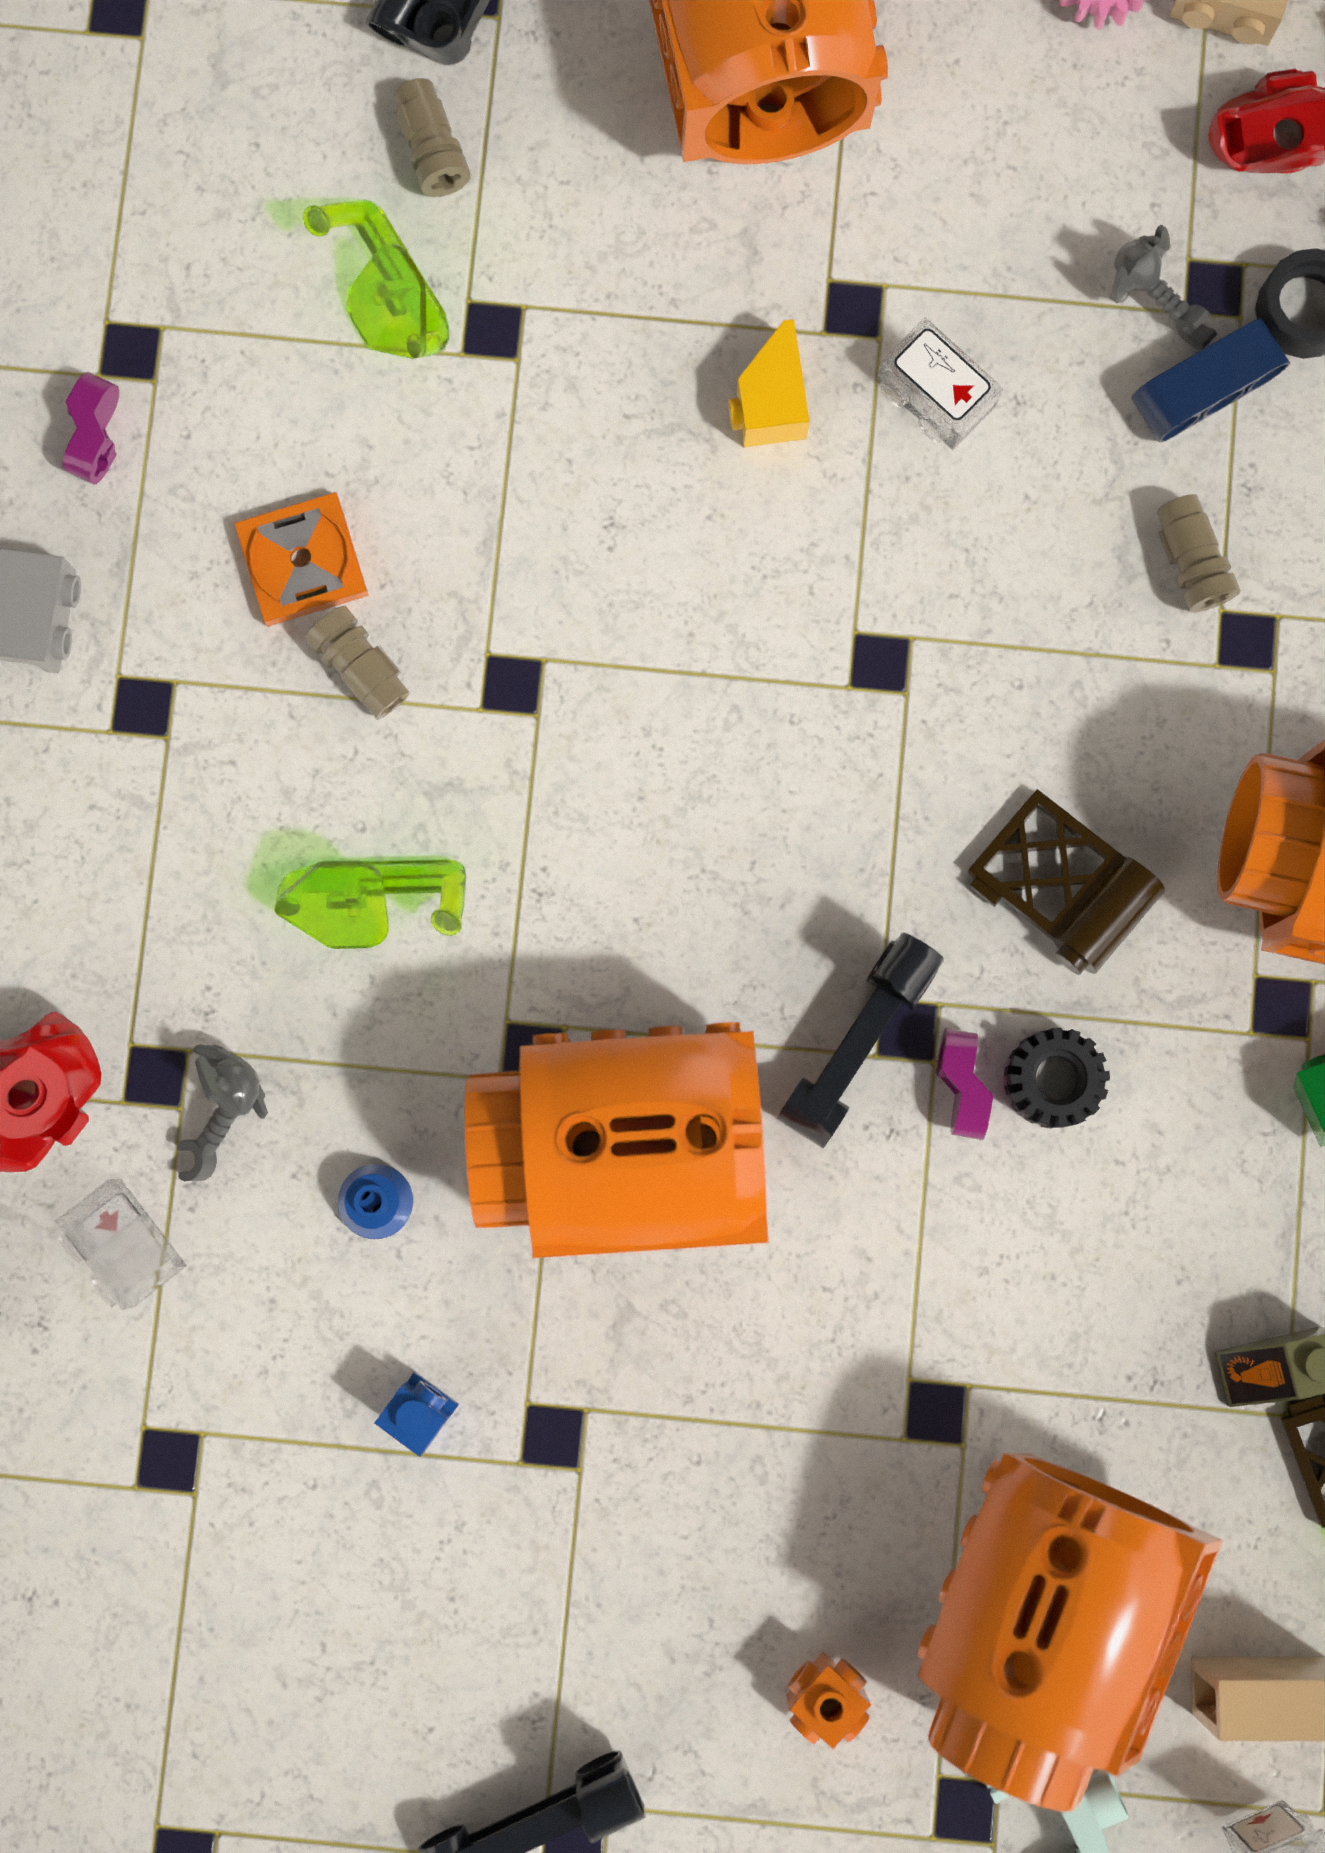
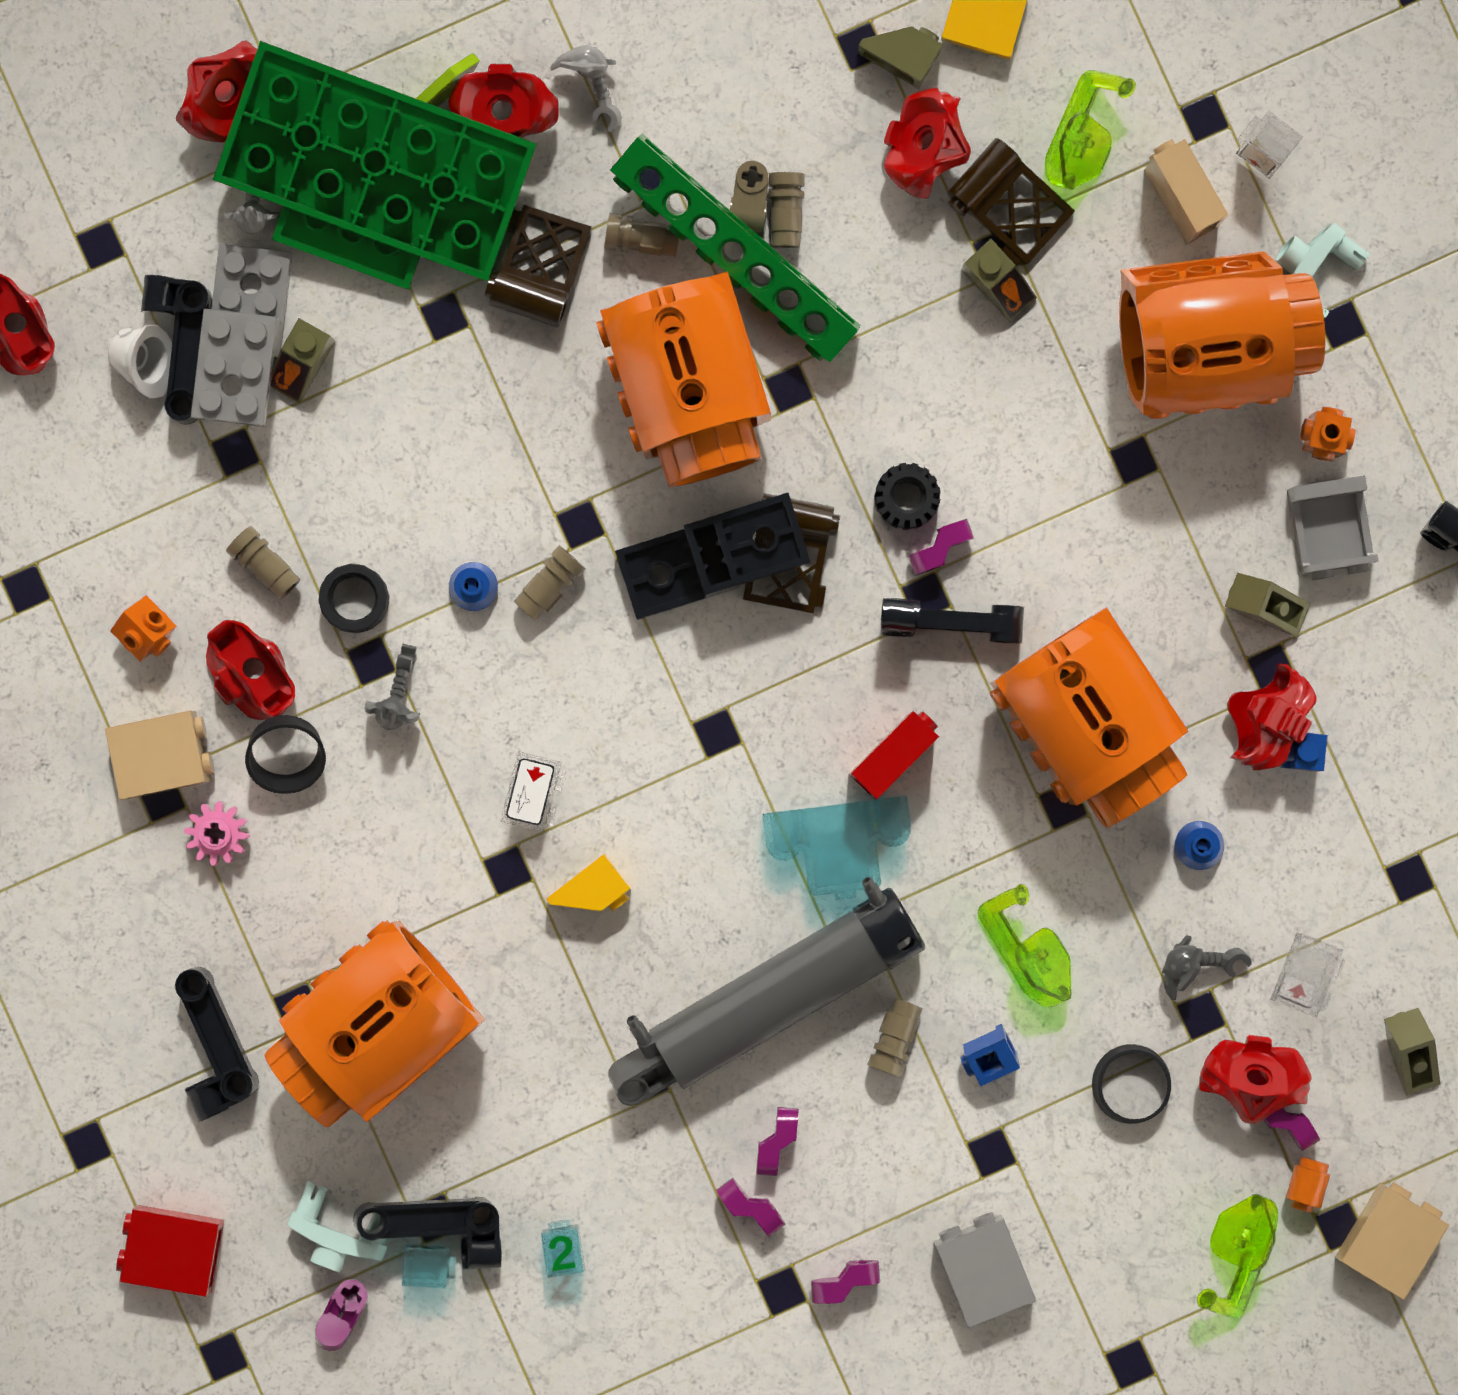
camera: 120 degrees left, 5 degrees up
(161, 961) = (1103, 1064): none -> black tyre
(244, 373) = (741, 1205): none -> magenta piece
(262, 769) = (996, 1065): none -> blue brick
(312, 427) = (770, 1147): none -> magenta piece
(331, 564) = (836, 1095): orange piece -> none
(341, 108) = (562, 1249): none -> clear light blue brick
(390, 295) = (662, 1147): clear neon green piece -> none
(435, 153) = (548, 1187): dark tan axle -> none
(485, 1394) = (1271, 719): none -> red piece
(504, 529) = (768, 998): none -> dark grey piece
(643, 1480) = (1267, 604): none -> olive slope
(652, 731) = (838, 841): none -> clear light blue brick
(697, 1632) = (1331, 527): none -> light grey panel
(726, 860) = (895, 753): none -> red brick
(1120, 775) = (712, 556): none -> black bracket
(1141, 72) = (285, 783): none -> black tyre
(1210, 380) = (436, 631): dark blue beam -> none
(1242, 460) = (473, 598): none -> blue cone

